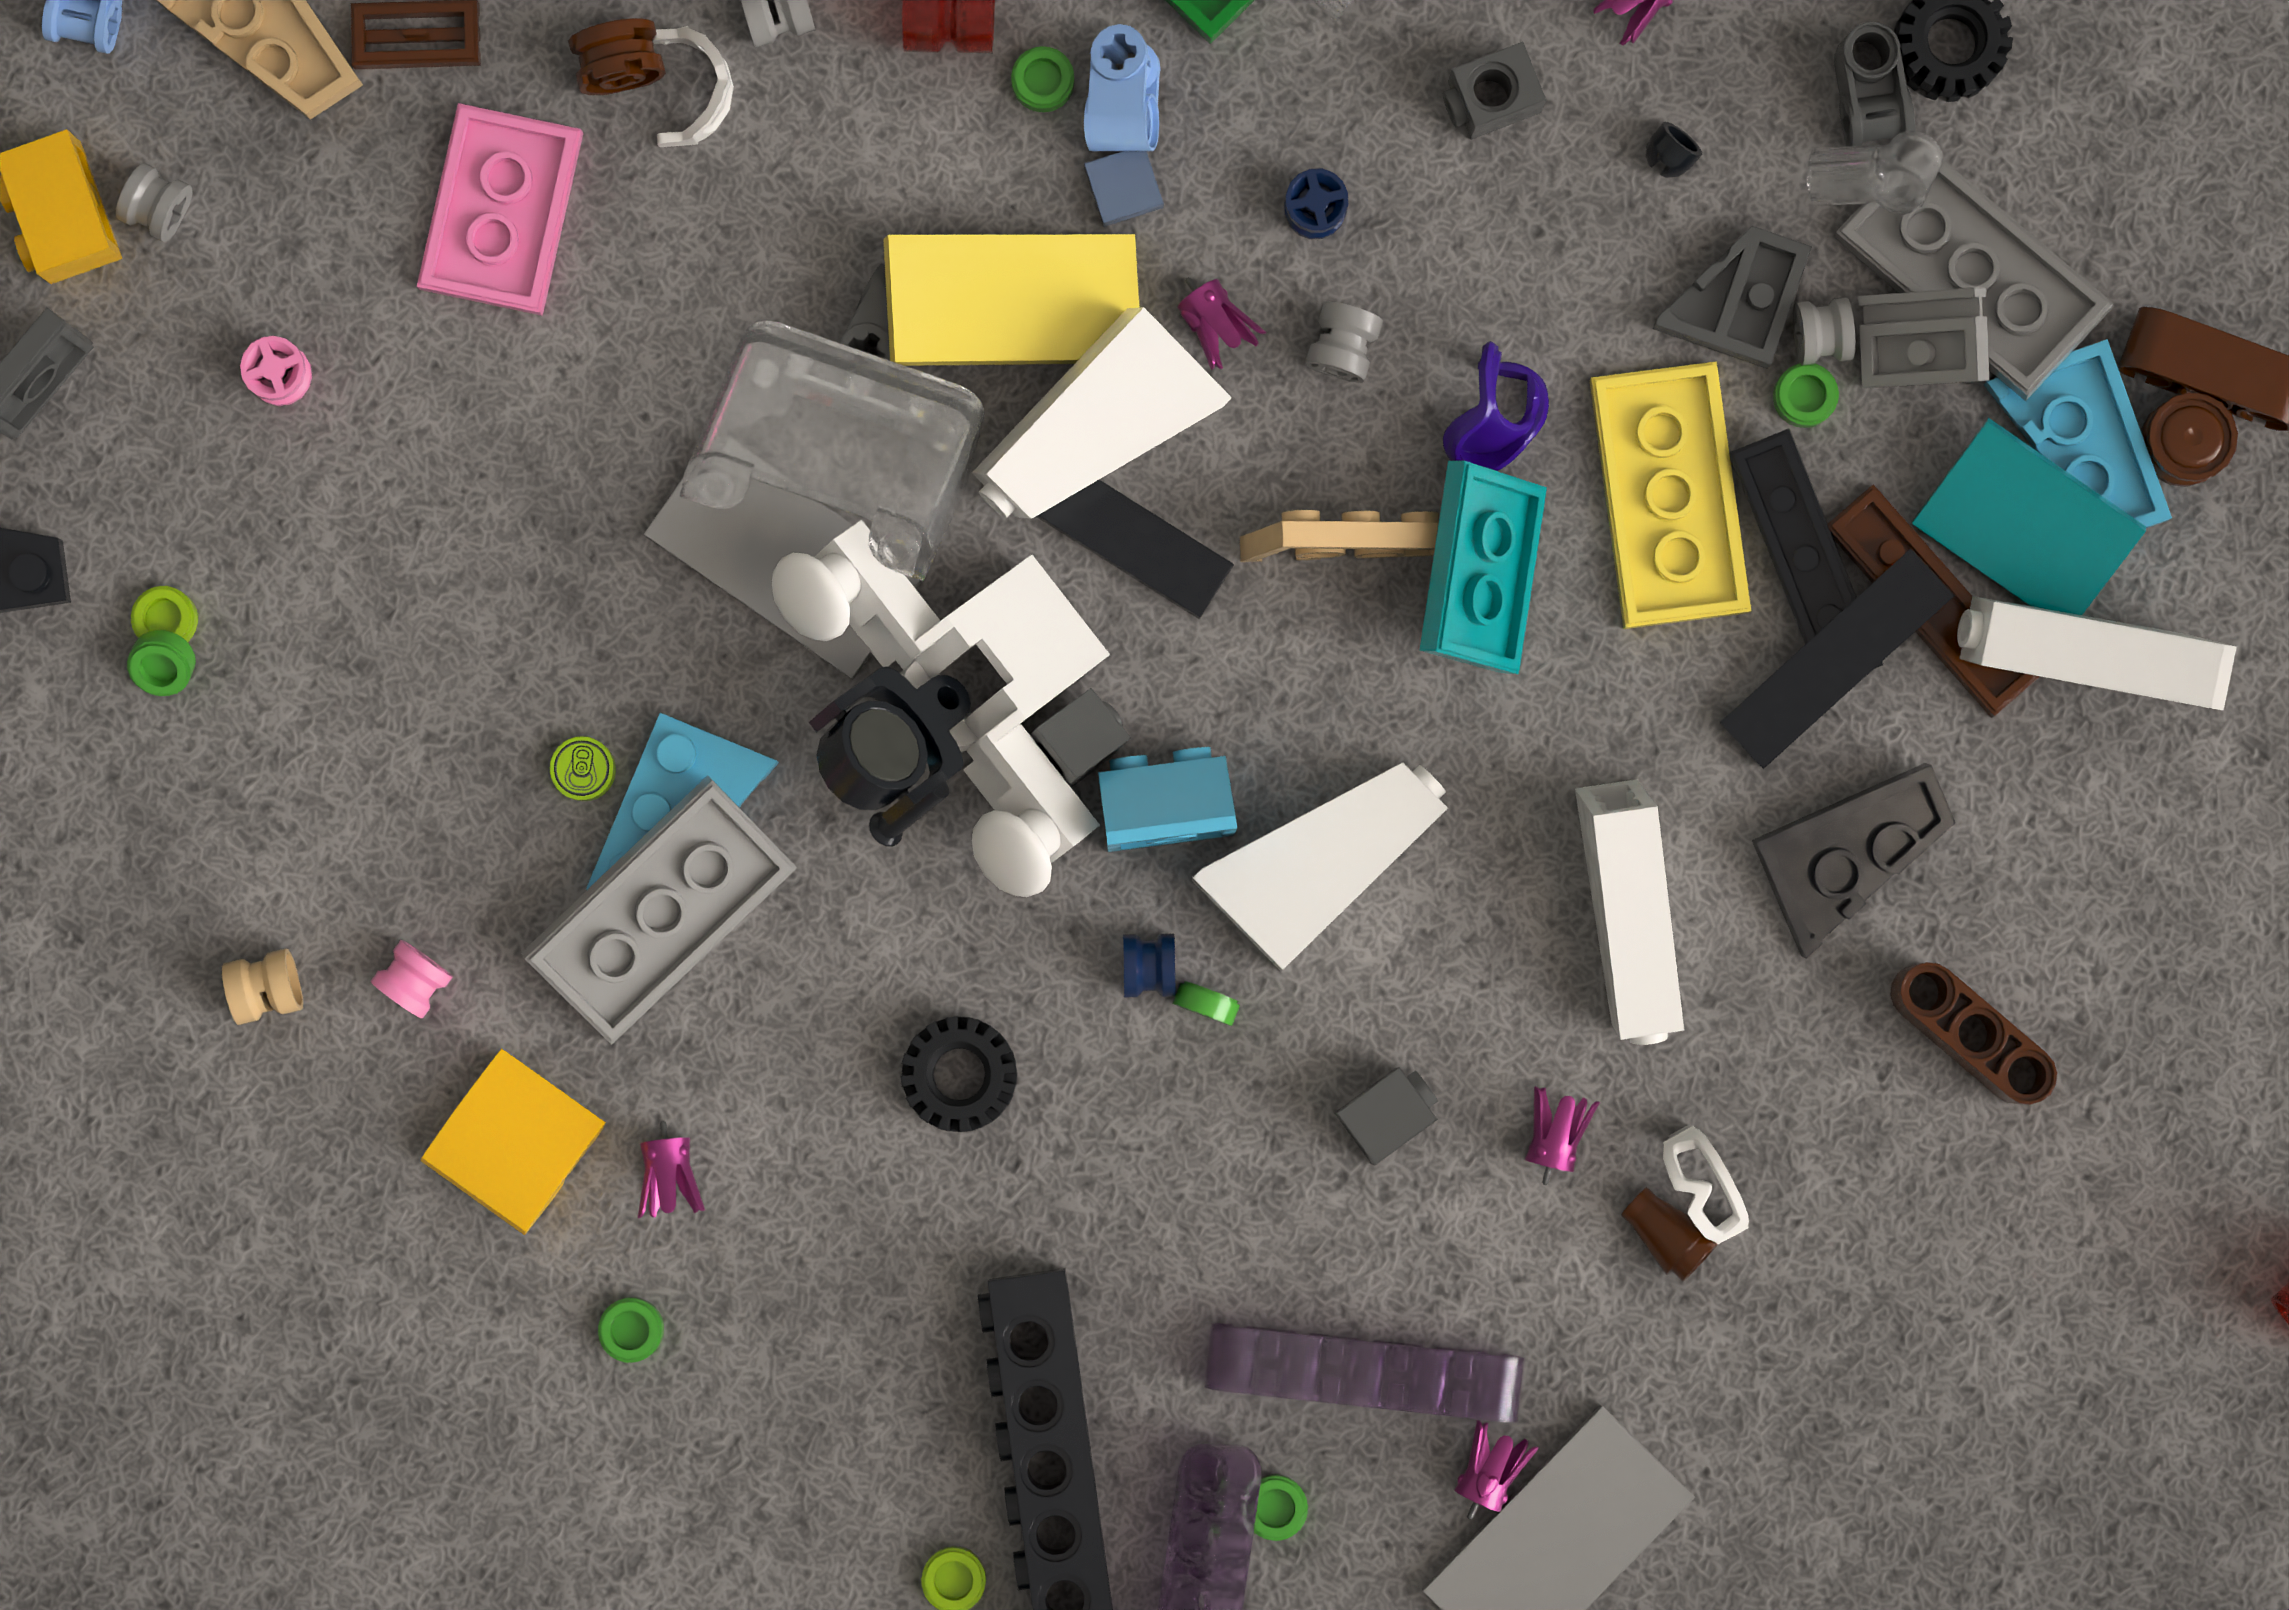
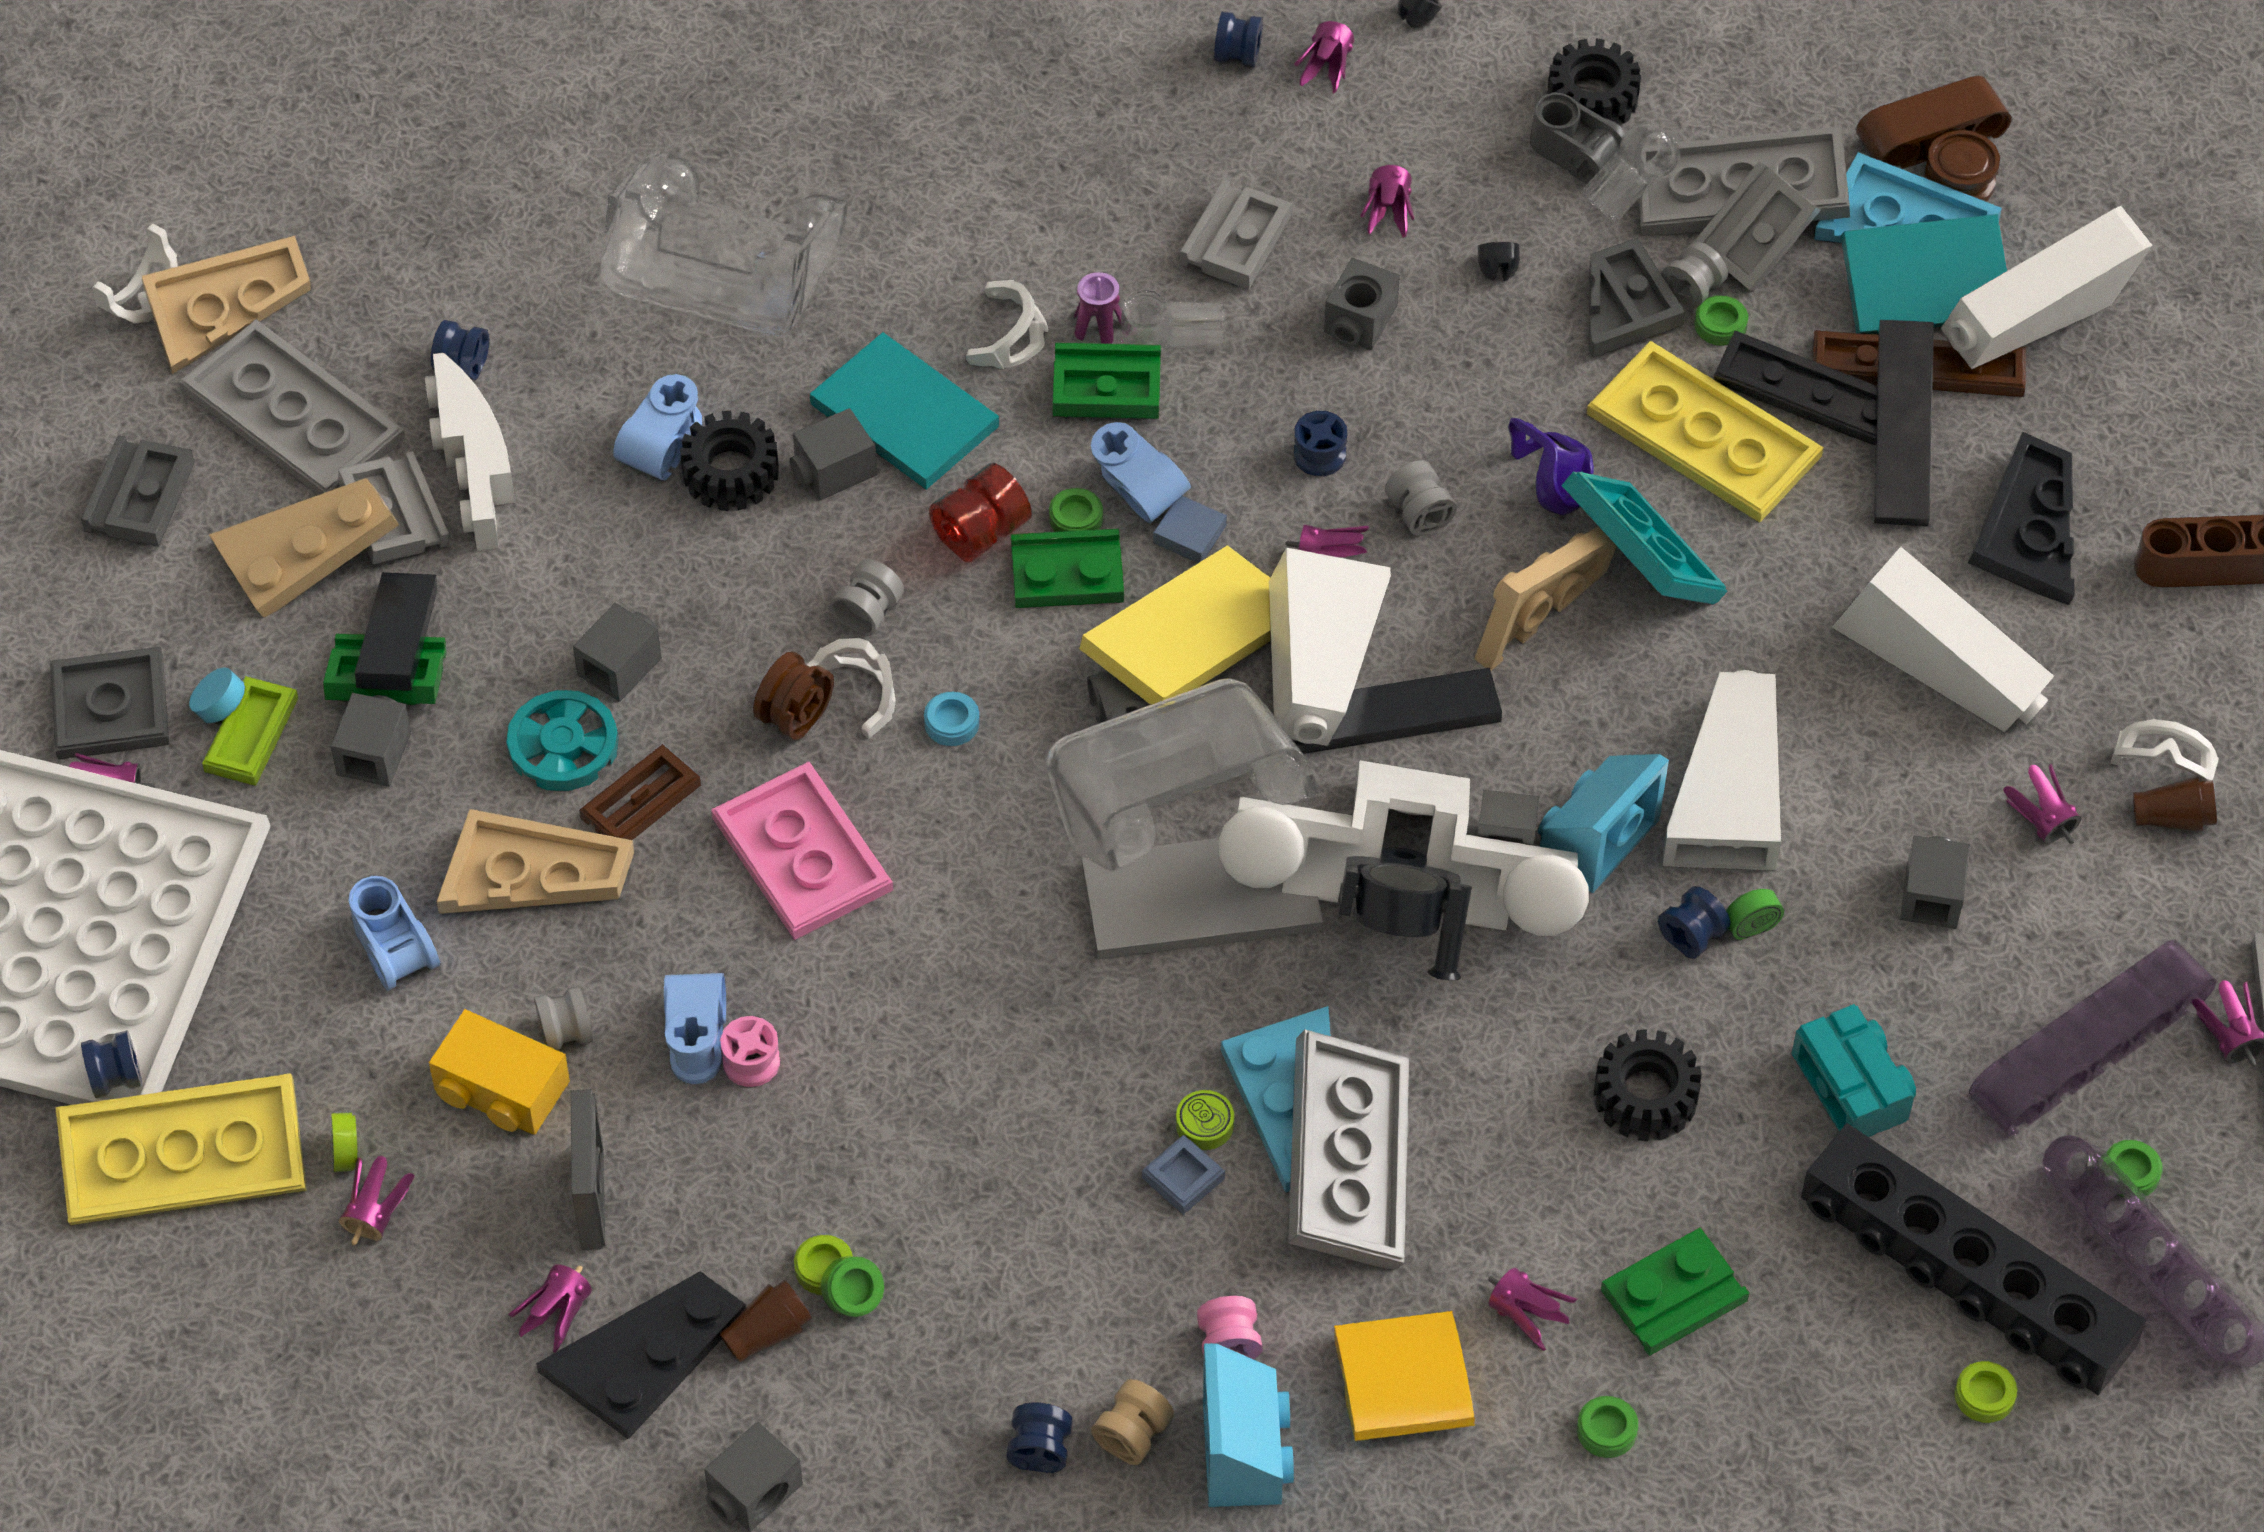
camera: 40 degrees left, 30 degrees down
(71, 632) = (766, 1321): none -> reddish brown cone
(178, 933) = (1039, 1437): none -> dark blue wheel
(259, 295) = (695, 1024): none -> light blue piece
(327, 1081) = (1244, 1430): none -> medium azure slope
(519, 801) = (1183, 1174): none -> sand blue tile
(742, 193) = (951, 718): none -> medium azure tile
(800, 1267) = (1674, 1291): none -> green plate
(981, 129) = (1067, 568): none -> green plate
(1133, 1224) = (1852, 1071): none -> teal brick

